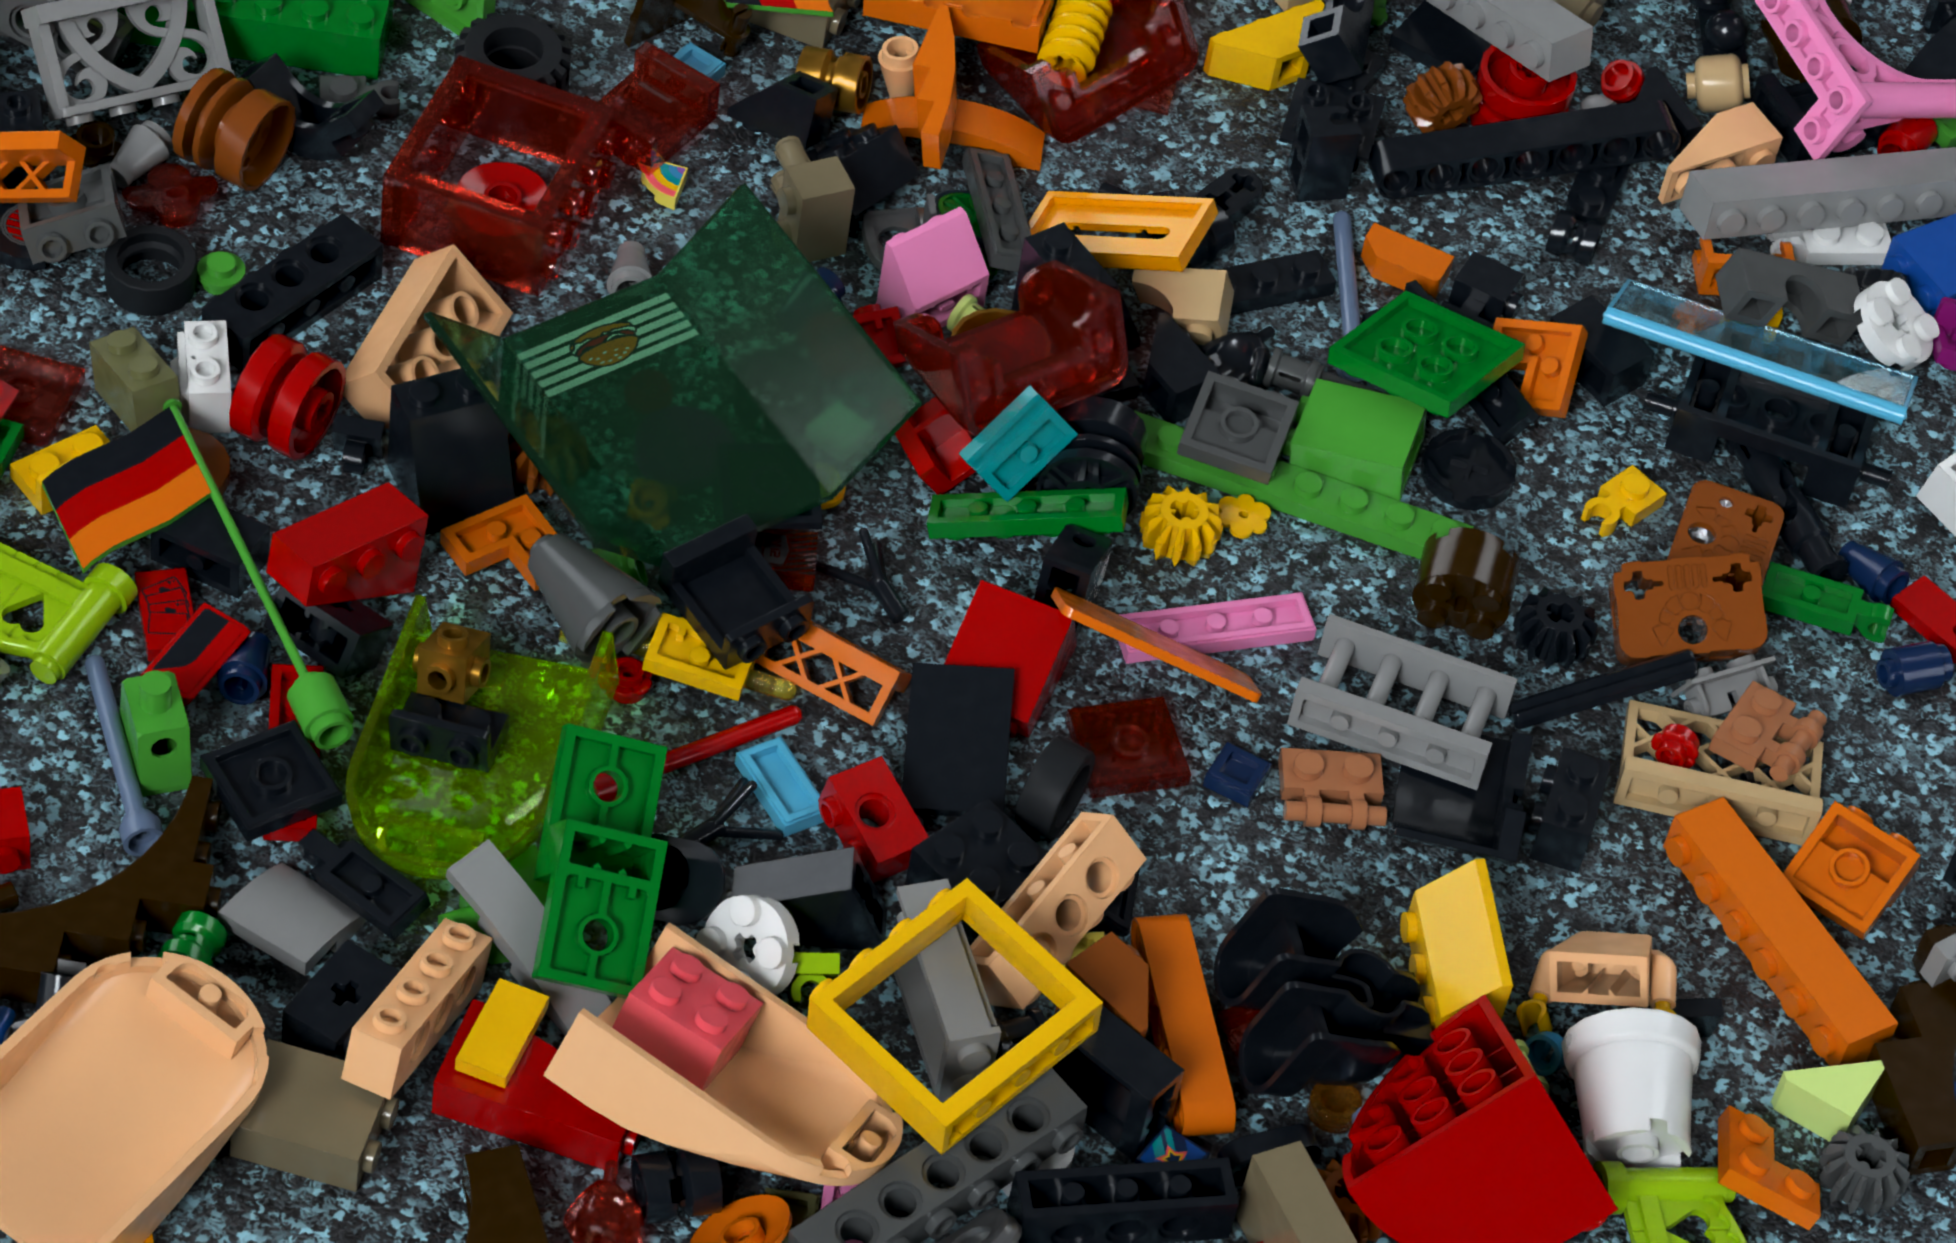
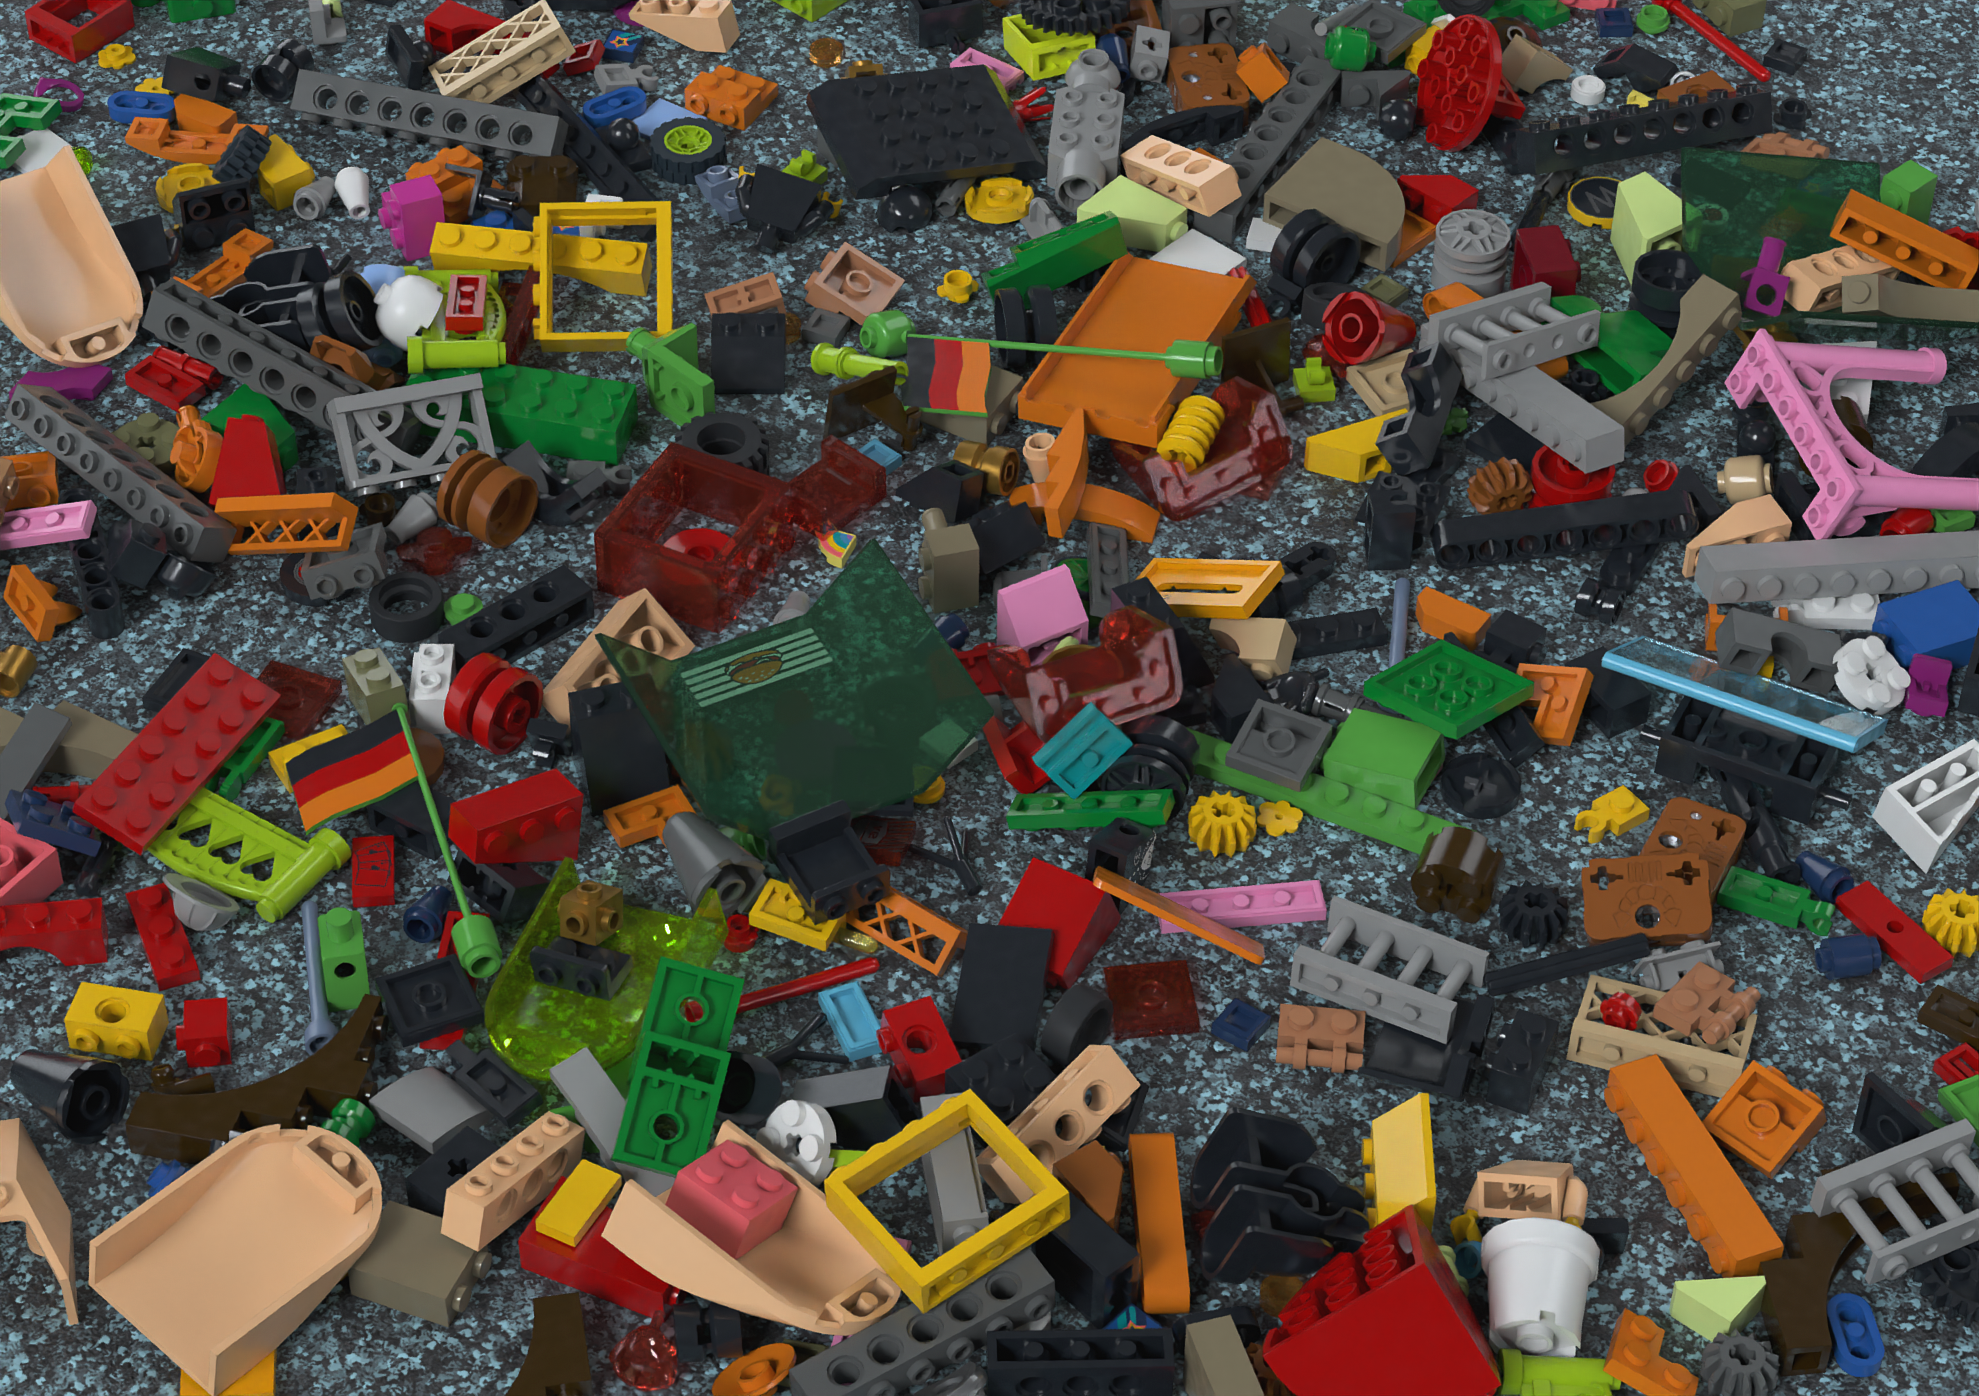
camera: 15 degrees right, 5 degrees down
(199, 649) = (389, 900): red slope -> none

